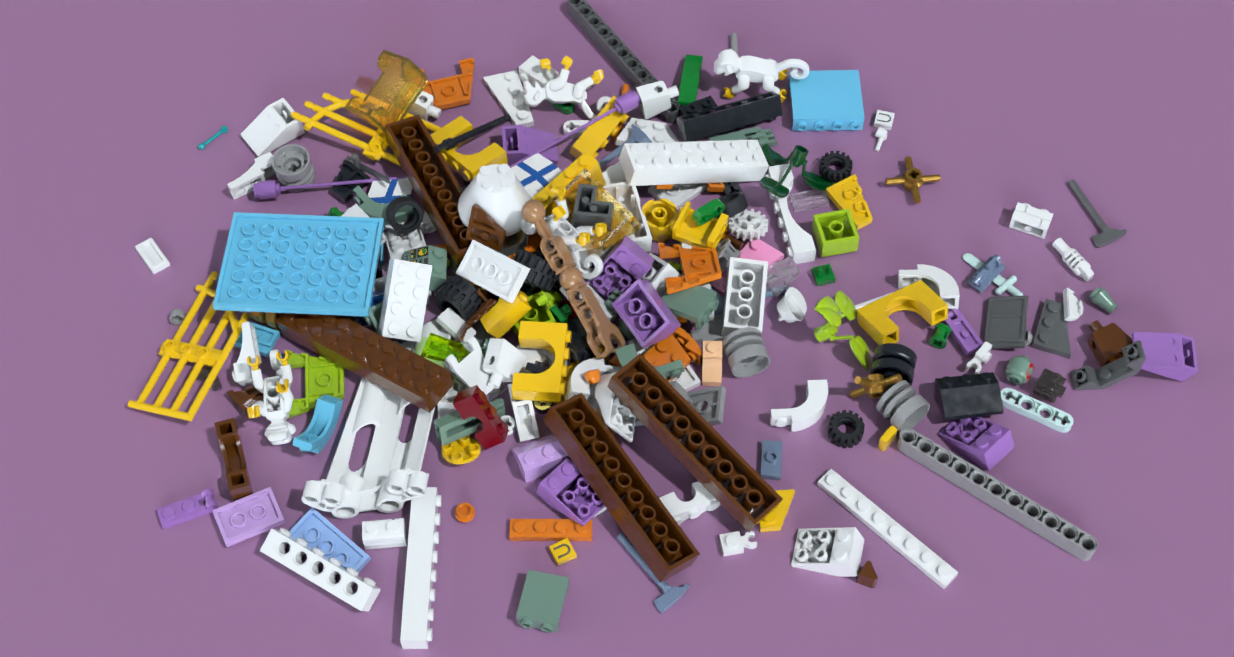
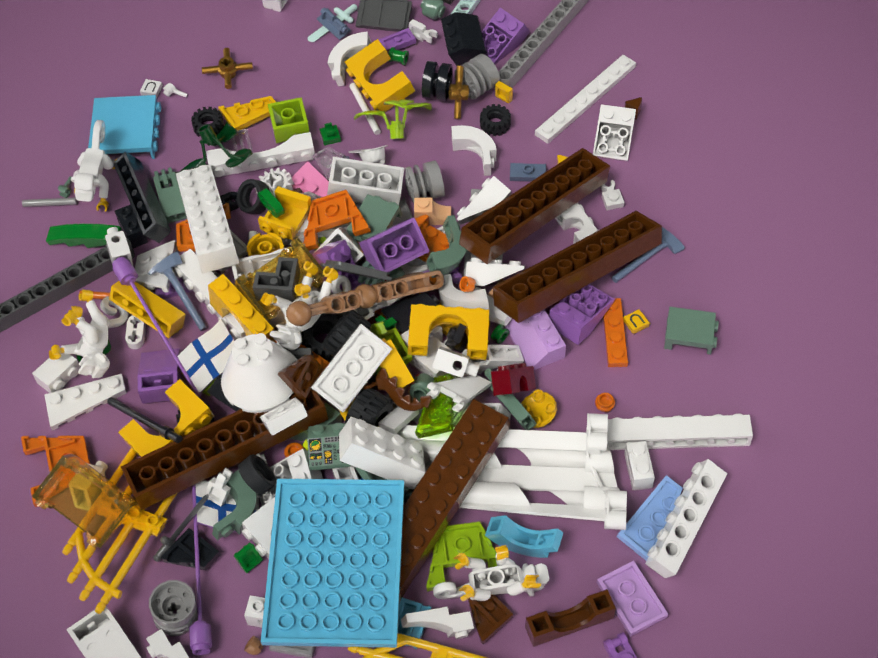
camera: 90 degrees left, 0 degrees up
(398, 190) = (217, 488): none -> white plate
(448, 222) = (284, 416): none -> white slope
(601, 270) = (357, 270): none -> dark grey piece
(699, 394) = (490, 195): none -> white slope

